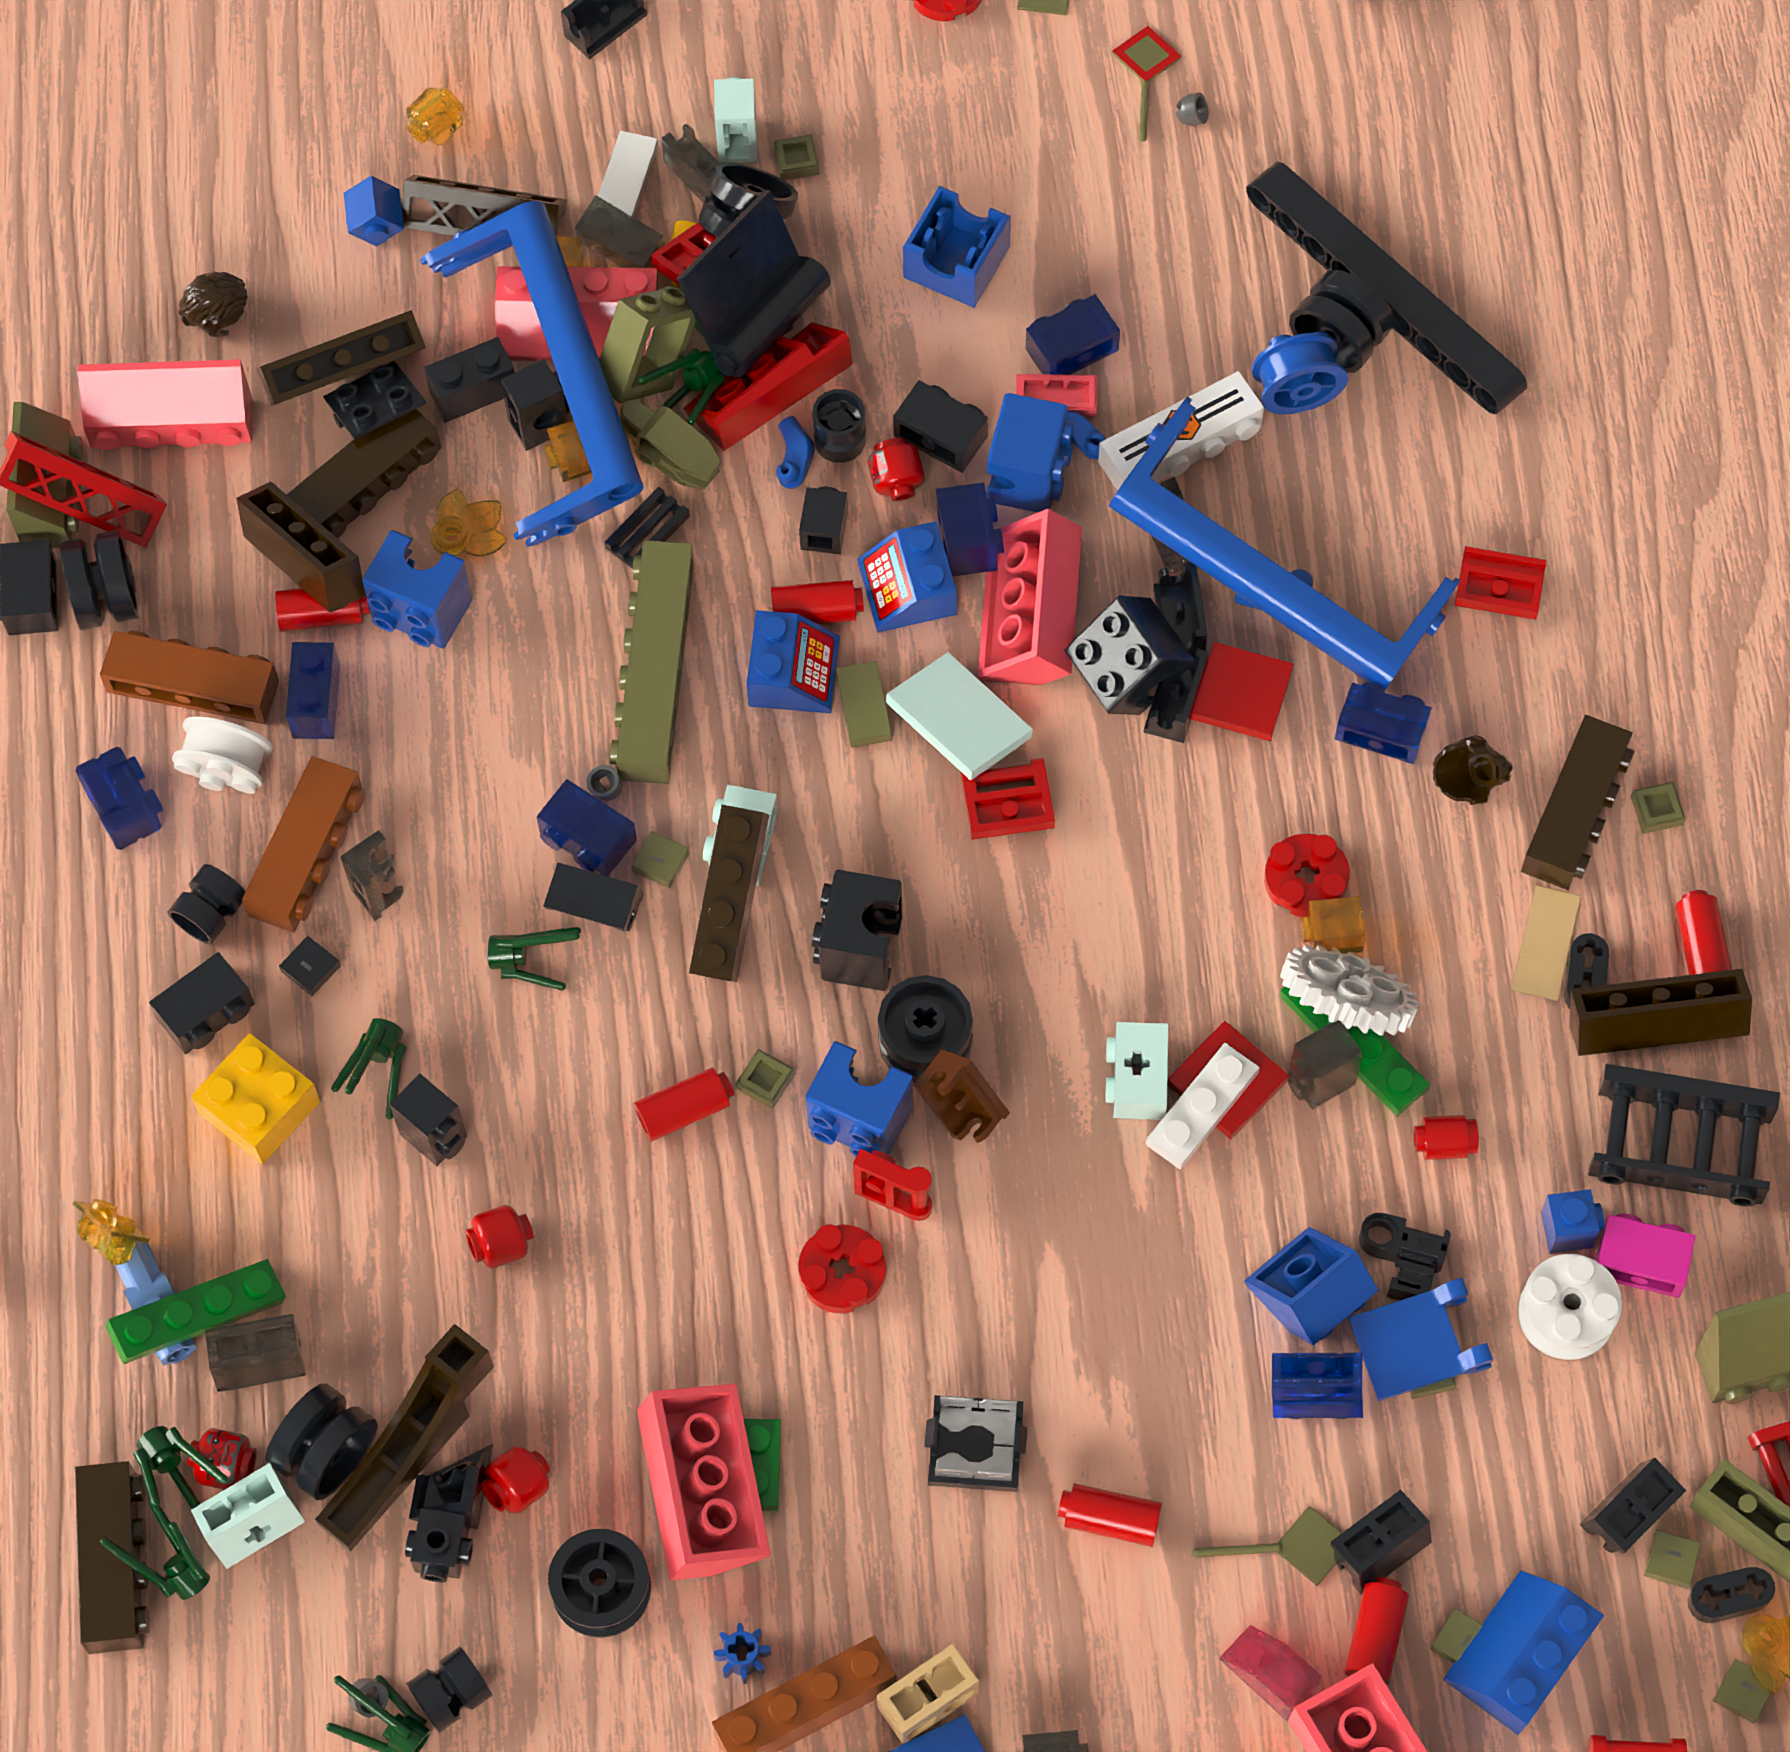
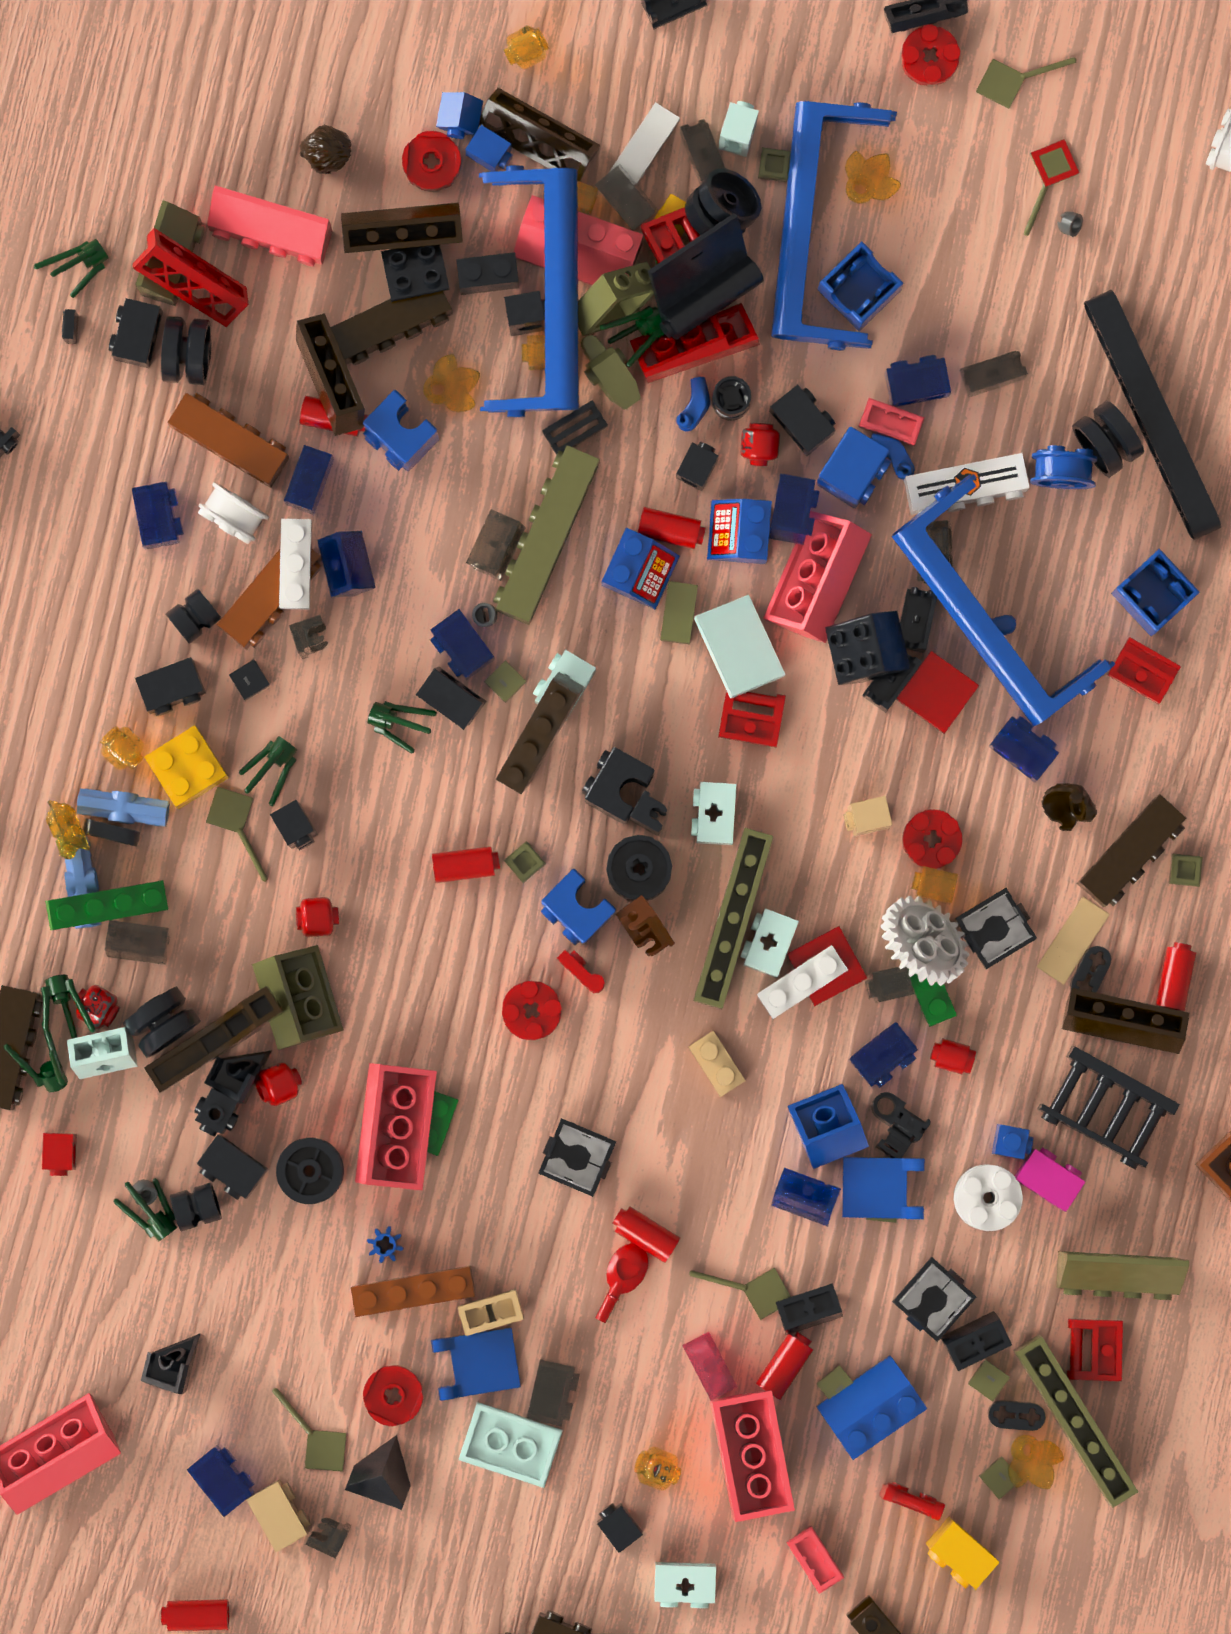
camera: 15 degrees right, 20 degrees up
(158, 1103) = (122, 748): none -> clear yellow head
(175, 1218) = (110, 832): none -> black beam
(181, 1181) = (123, 807): none -> medium blue piece
(225, 1680) = (59, 1153): none -> red brick
(326, 789) = (295, 564): none -> white plate
(336, 1145) = (230, 812): none -> olive piece
(355, 299) = (420, 148): none -> red plate
(396, 773) = (346, 563): none -> clear blue brick
(419, 234) = (489, 150): none -> blue brick
(484, 1617) = (232, 1167): none -> black brick
(528, 1361) = (304, 994): none -> olive slope
(590, 694) = (495, 545): none -> clear smoke hinge
(878, 318) = (798, 220): none -> blue piece
(907, 955) = (644, 809): none -> black hinge
(923, 133) = (872, 175): none -> clear yellow plate
(1004, 908) = (723, 797): none -> light aqua brick
(1077, 1053) = (733, 918): none -> olive brick
(1100, 1587) = (623, 1275): none -> red piece
(1125, 1256) = (716, 1063): none -> tan plate
(1166, 303) = (993, 373): none -> clear smoke hinge
(1211, 862) = (868, 816): none -> tan brick
(1350, 1166) = (883, 1055): none -> clear blue brick
(1438, 956) = (996, 928): none -> piece
(1476, 479) = (1155, 592): none -> blue piece
(1551, 1470) = (934, 1299): none -> piece

